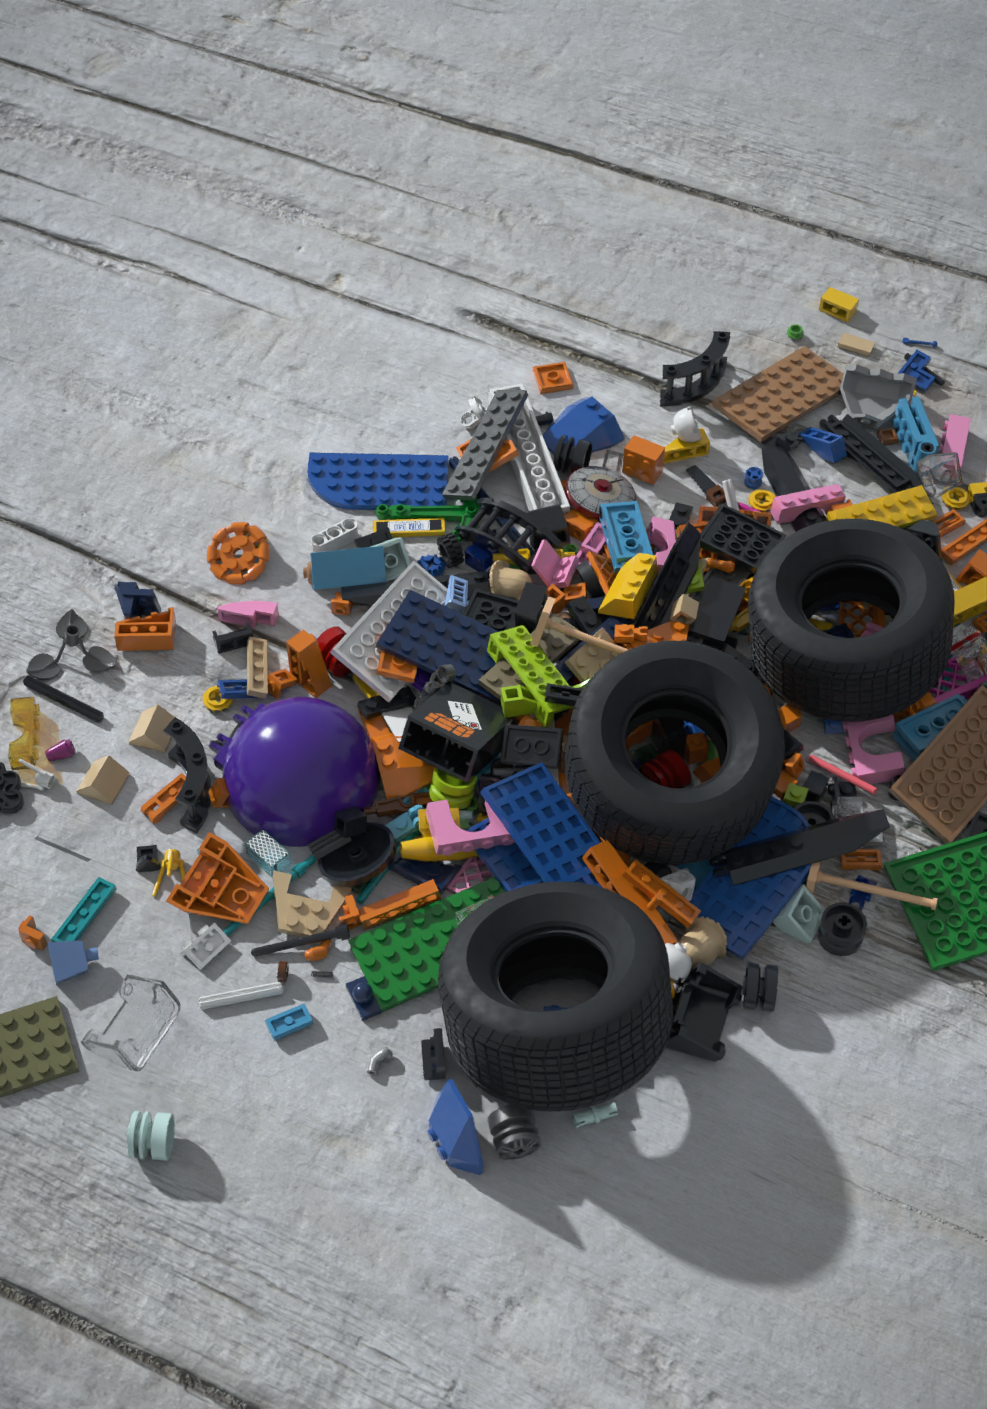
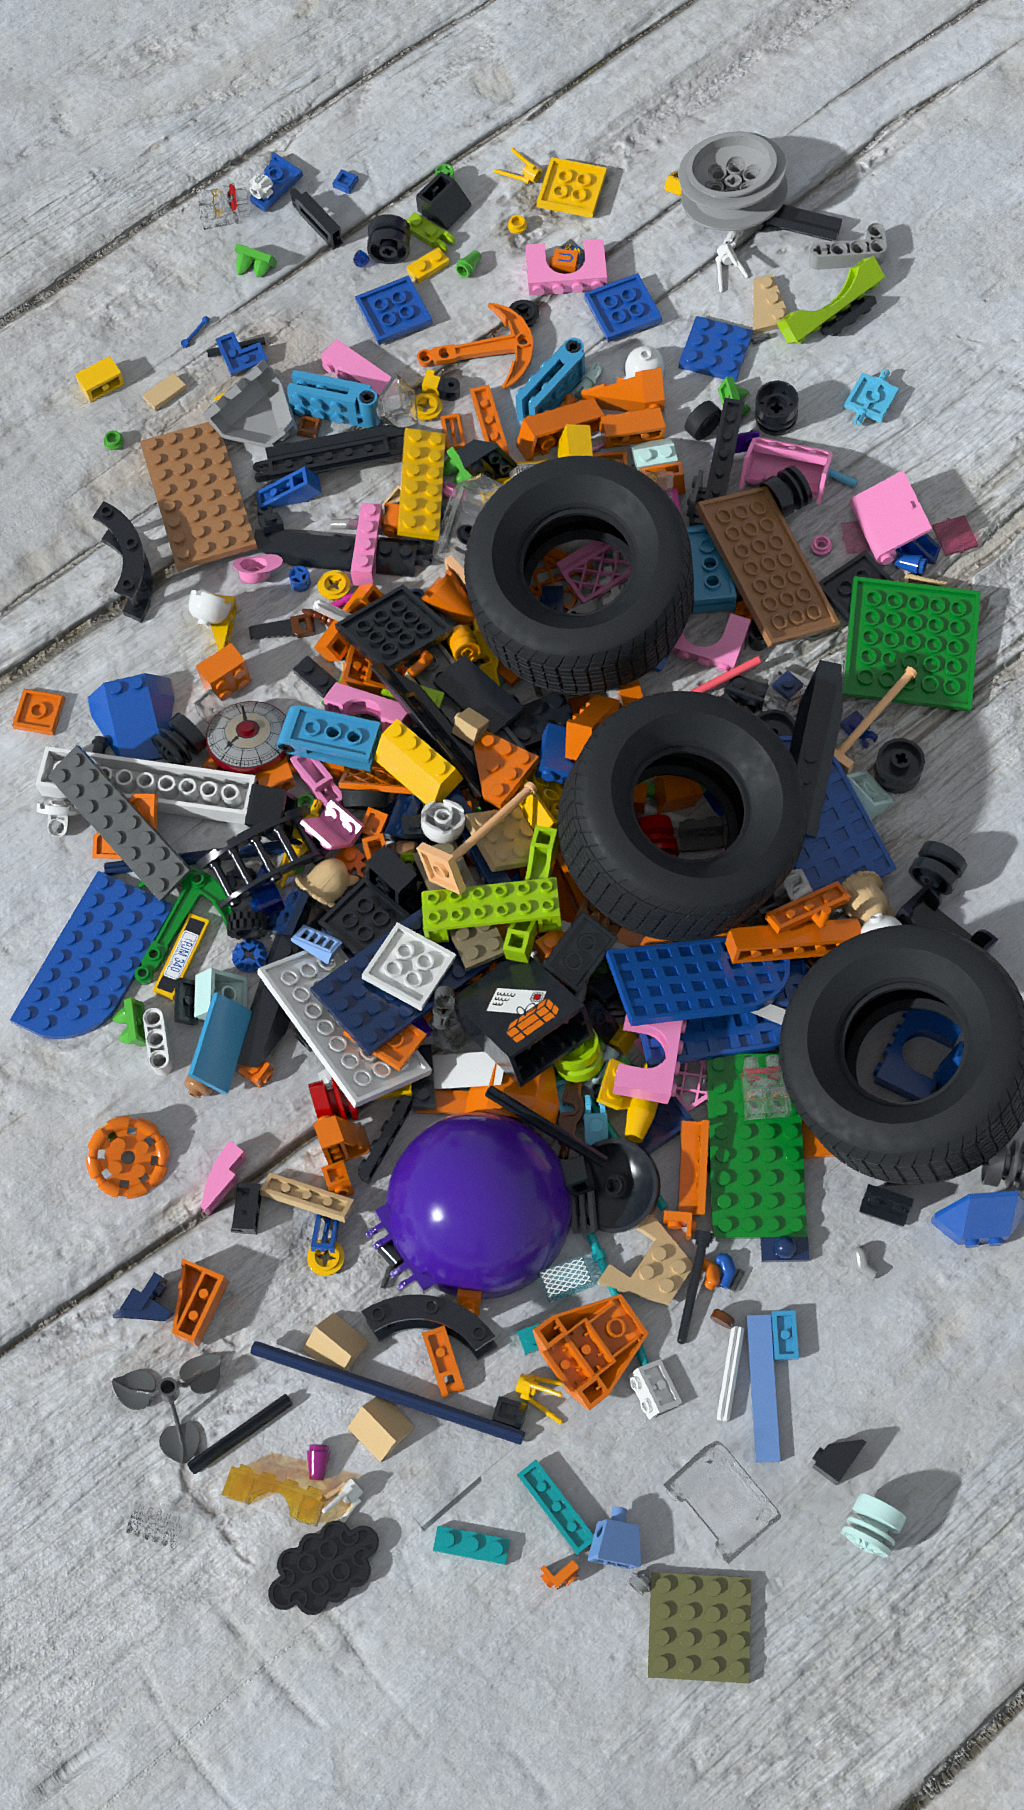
camera: 60 degrees left, 15 degrees up
(34, 871) = (471, 1545): none -> teal plate
(45, 990) = (639, 1583): none -> light grey plate
(129, 775) = (388, 1392): none -> dark blue axle
(199, 1096) = (836, 1459): none -> black slope
(235, 1024) = (763, 1389): none -> medium blue tile
(327, 963) = (729, 1269): none -> blue arm
(343, 699) = (389, 1132): none -> black plate
(349, 512) = (132, 1015): none -> bright green tile
(377, 783) = (546, 1126): none -> black axle
(459, 641) = (409, 966): none -> white plate
(465, 567) = (285, 920): none -> dark blue plate
(561, 694) = (531, 900): black tile -> none
(588, 615) = (442, 821): none -> white cylinder
(627, 633) = (483, 794): orange plate -> none
(742, 447) = (256, 568): none -> bright pink piece
(854, 806) = (787, 685): none -> dark blue plate

